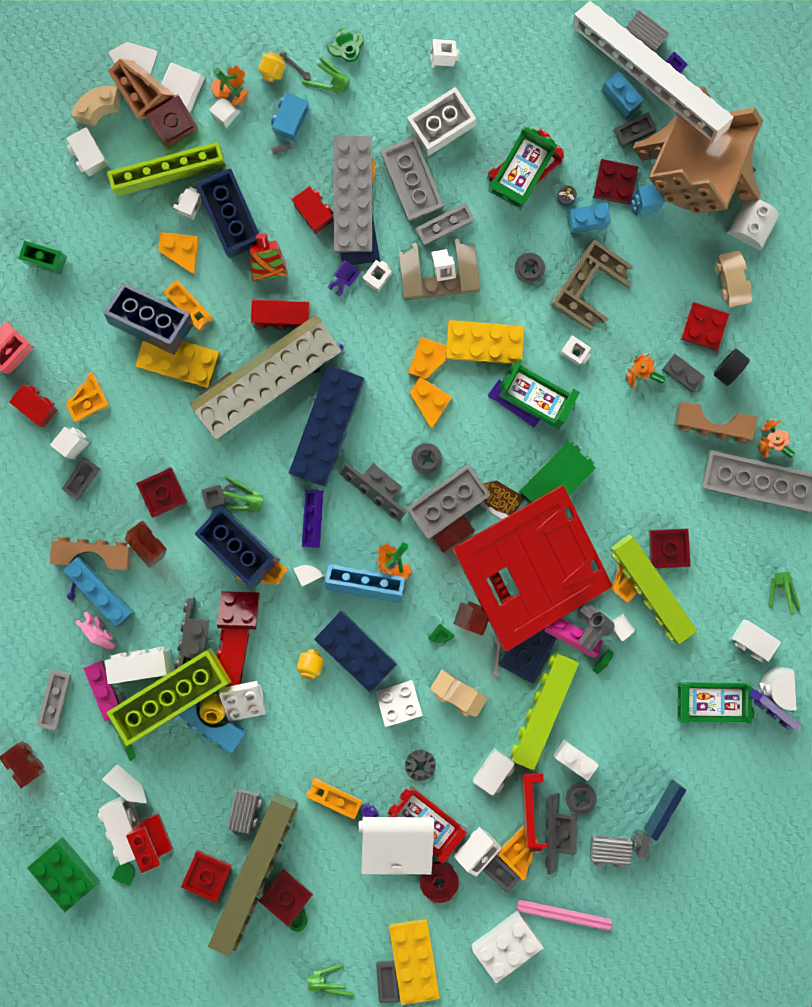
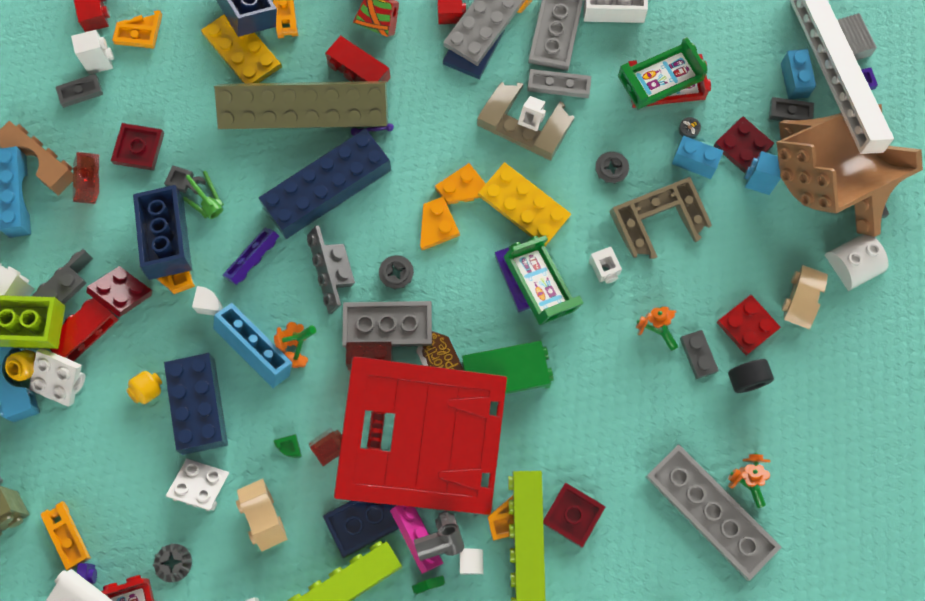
camera: 30 degrees right, 15 degrees down
(346, 275) = (439, 69): dark purple plate -> none
(381, 268) = (467, 87): white brick -> none
(495, 673) = (314, 521): light grey hinge -> none
(690, 416) = (721, 441): medium nougat arch -> none

